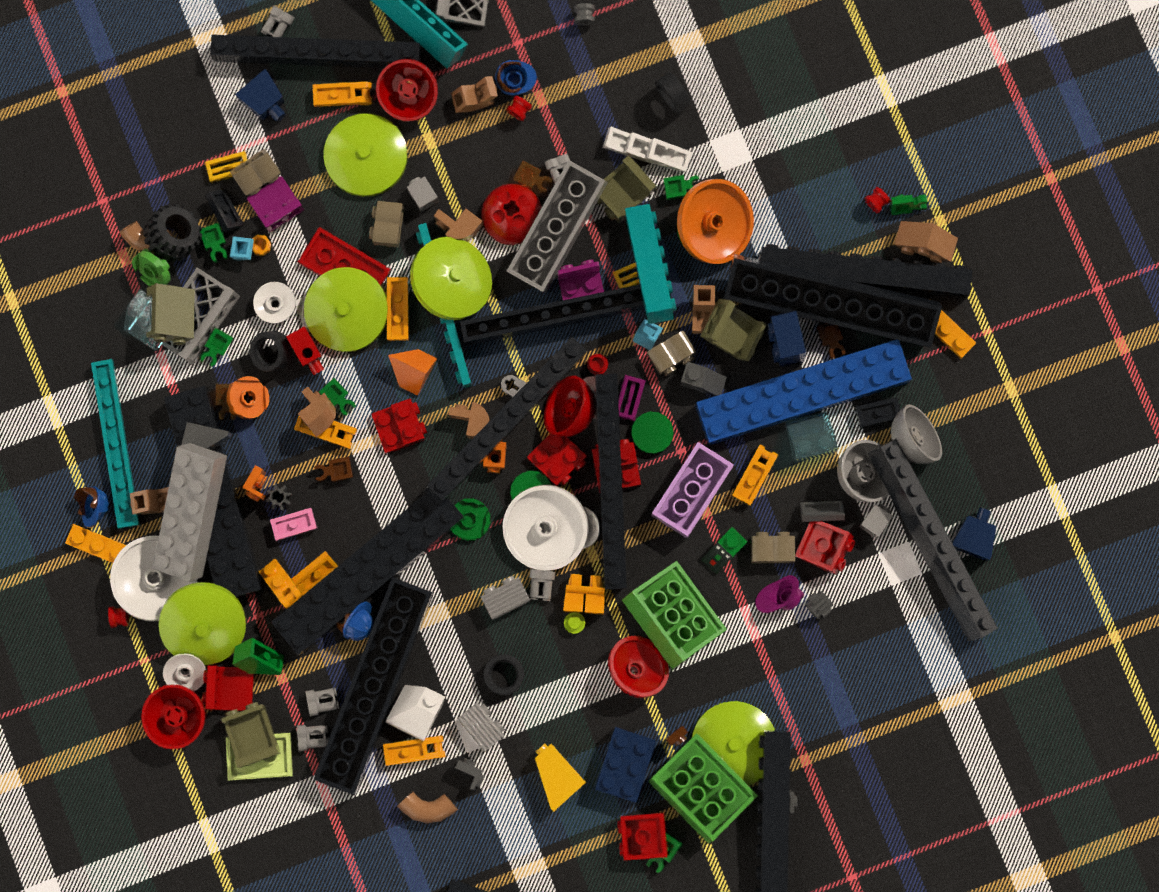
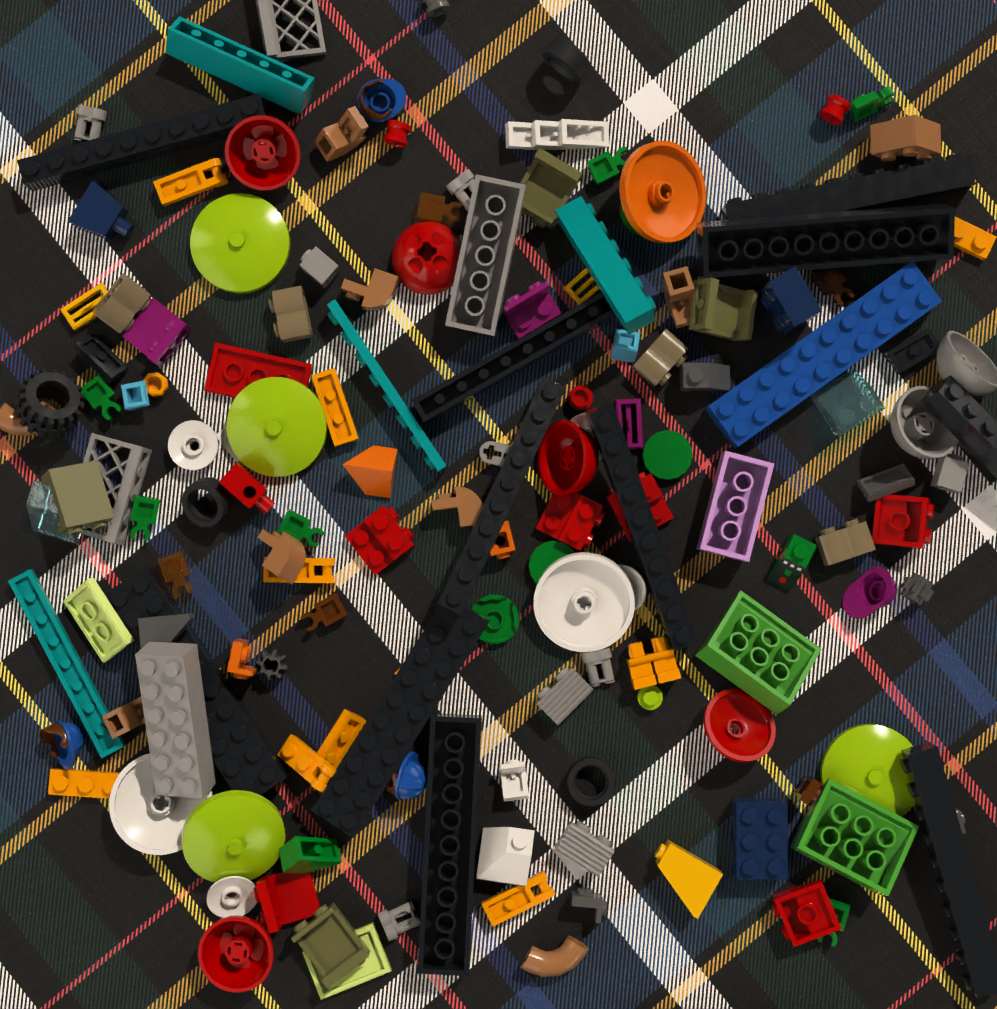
camera: 20 degrees left, 5 degrees up
(117, 617) = (134, 859): red wheel -> none
(152, 268) = (42, 452): bright green plate -> none
(152, 416) = (98, 620): none -> yellowish green tile
(236, 394) = (192, 576): orange plate -> none
(293, 524) = (298, 689): bright pink plate -> none
(313, 701) = (386, 878): light grey piece -> none
(442, 653) = (514, 780): none -> white bracket
(451, 278) = (384, 353): lime dish -> none
(754, 476) = (797, 466): light orange plate -> none

